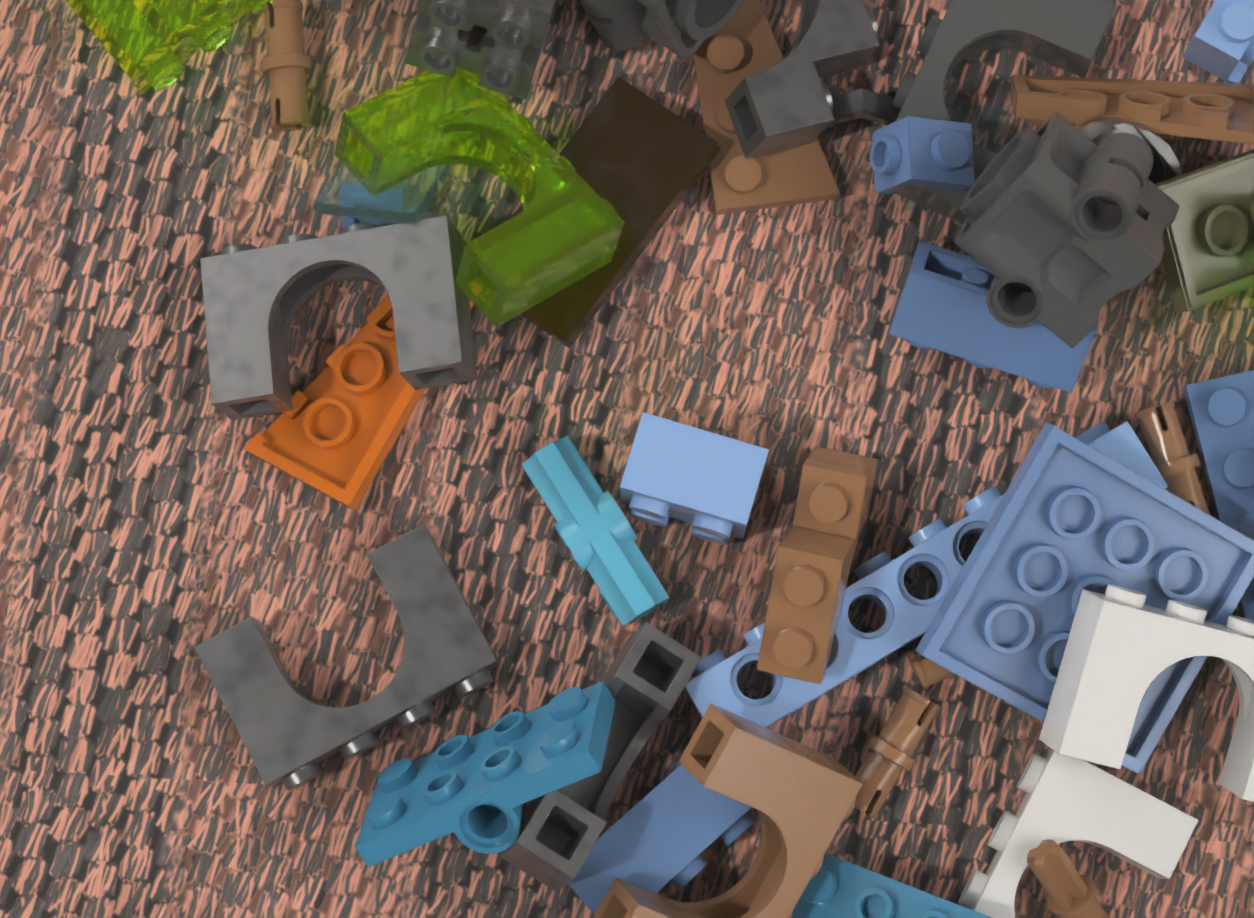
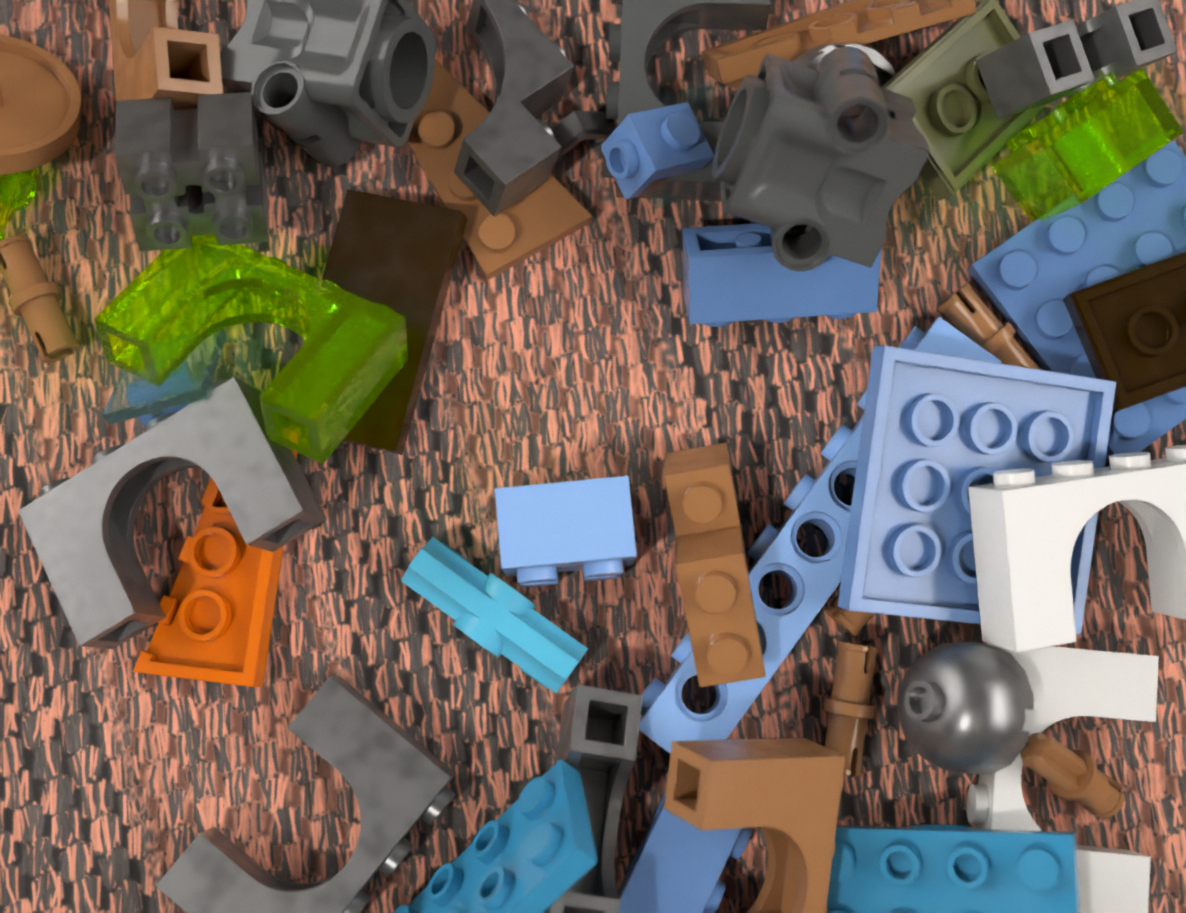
camera: 30 degrees left, 0 degrees up
(995, 791) = (966, 707): none -> flat silver cylinder

